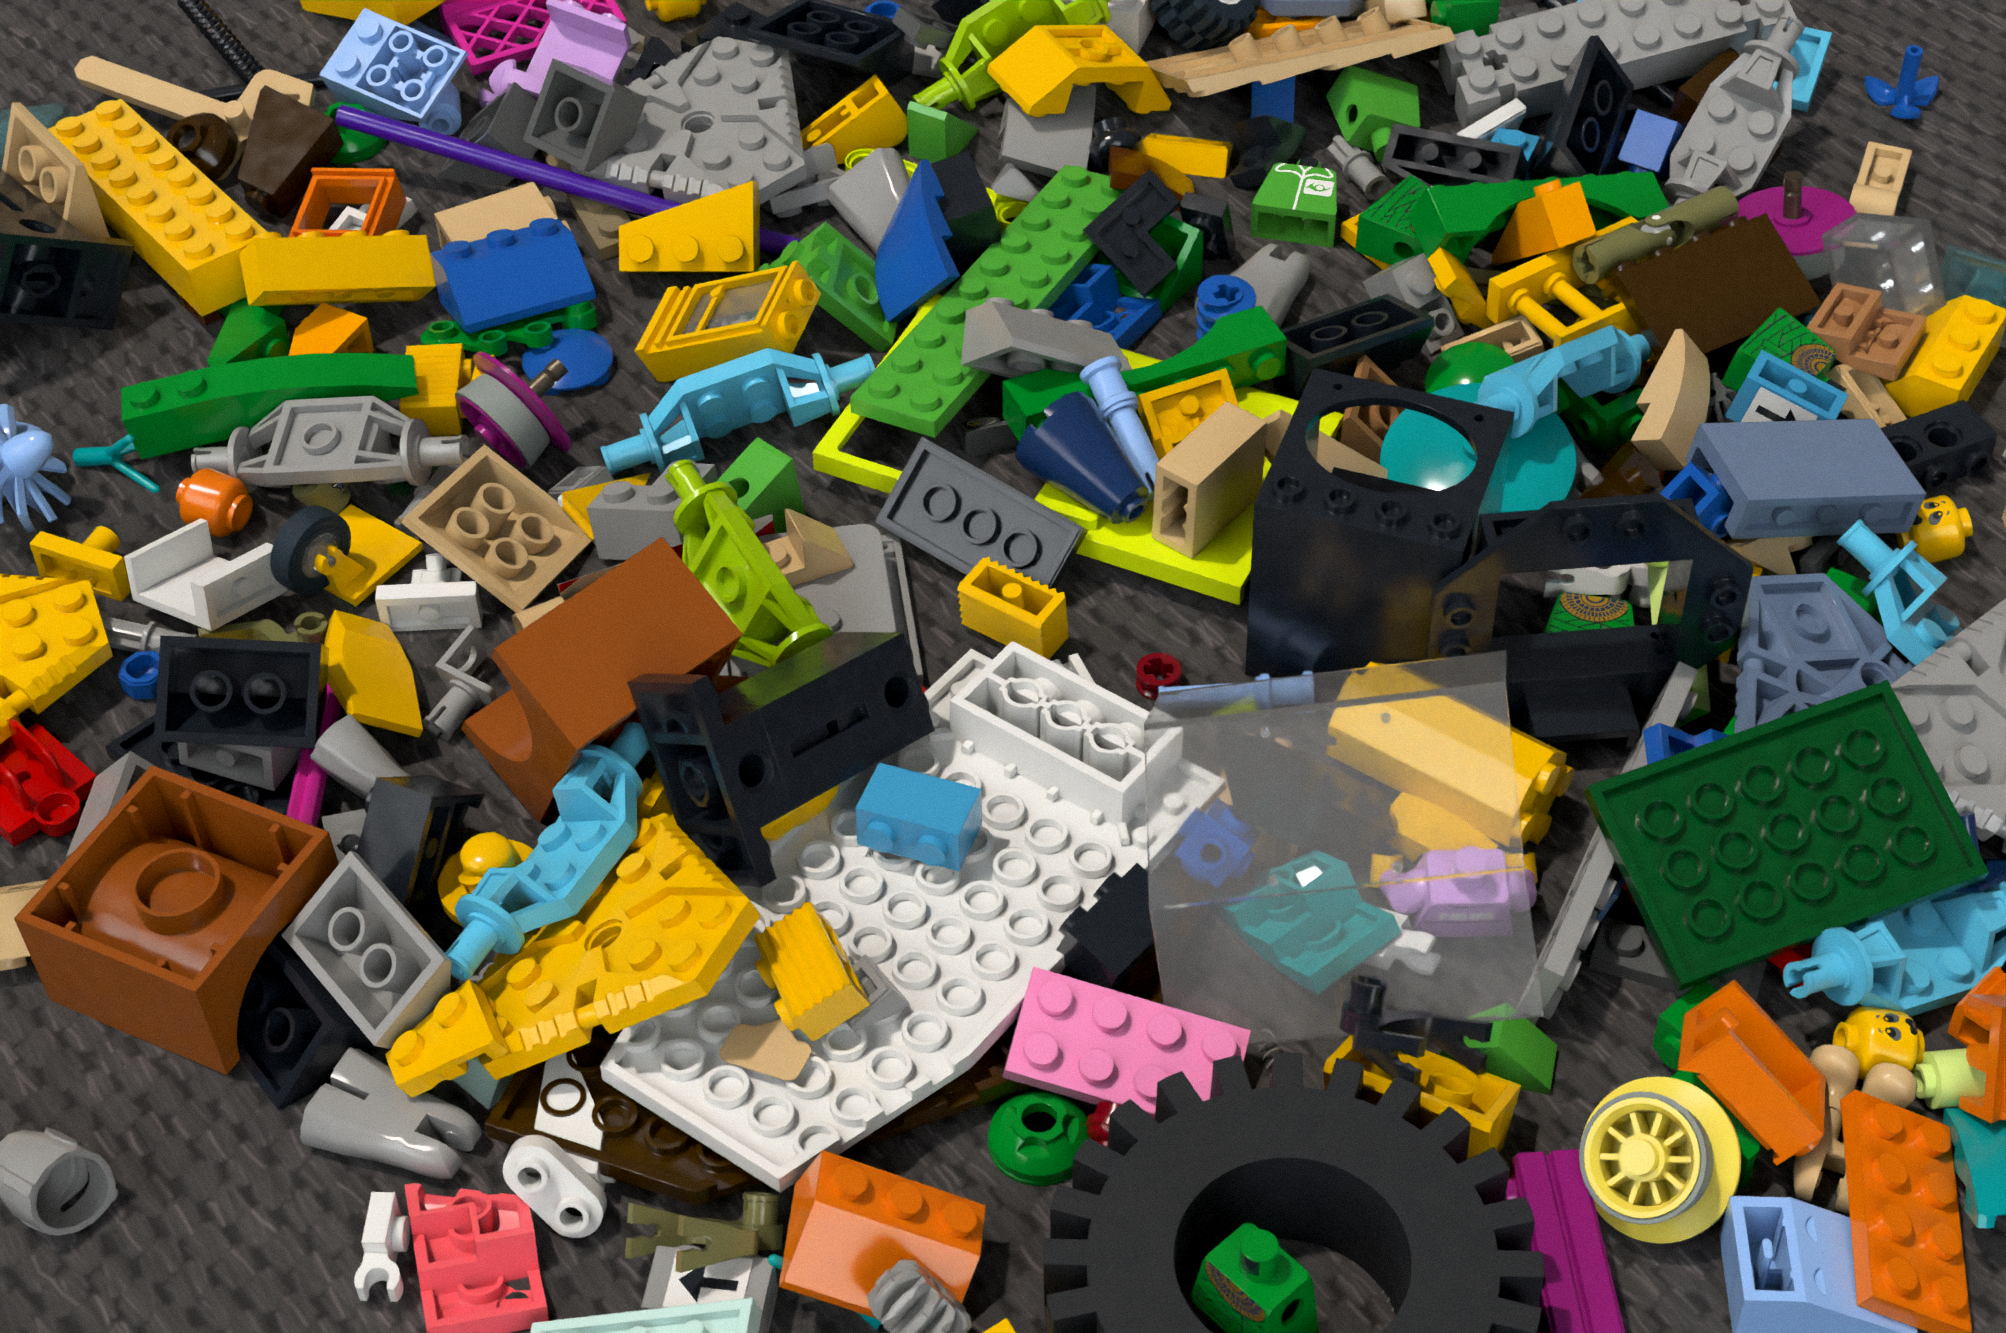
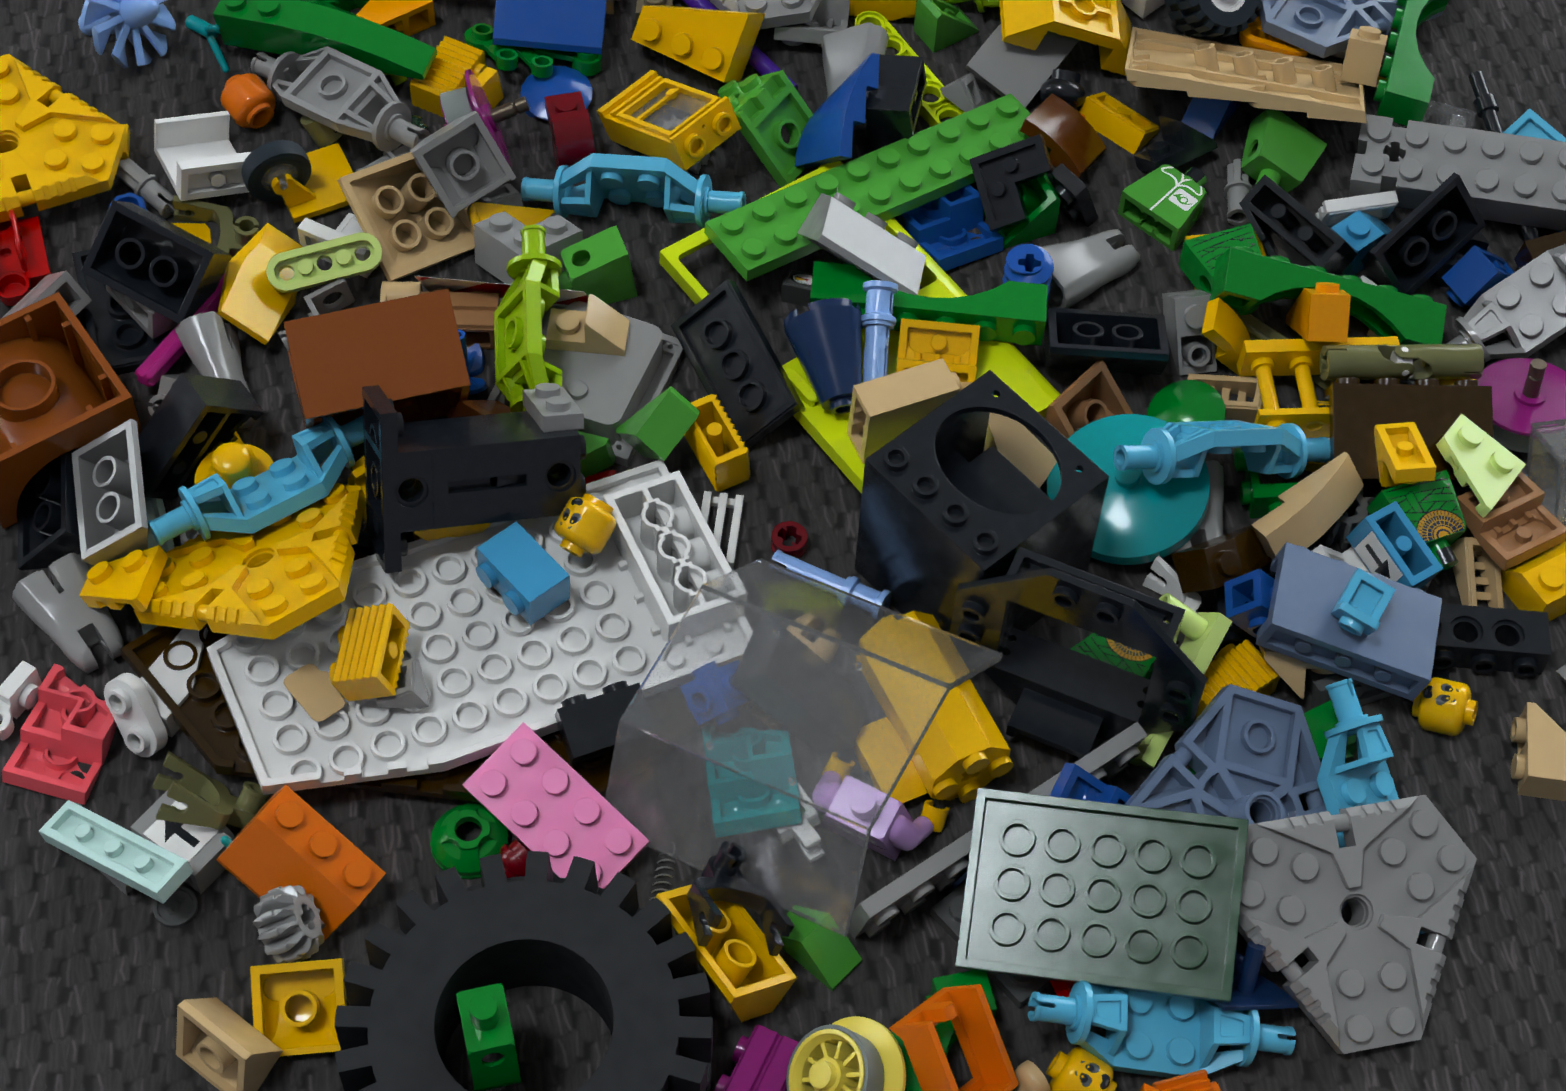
camera: 25 degrees right, 10 degrees up
(85, 561) = (139, 108): yellow tile -> none
(446, 599) = (339, 251): none -> yellowish green plate
(533, 447) = (462, 162): none -> light grey slope
(623, 381) = (569, 128): none -> dark red brick
(842, 627) = (553, 408): none -> light grey plate
(948, 615) = (659, 425): none -> bright green slope
(954, 737) = (585, 525): none -> yellow head
(1731, 312) = (1402, 455): none -> yellow slope
(1805, 285) = (1479, 462): none -> yellowish green wing
(1820, 443) = (1362, 603): none -> medium azure bracket

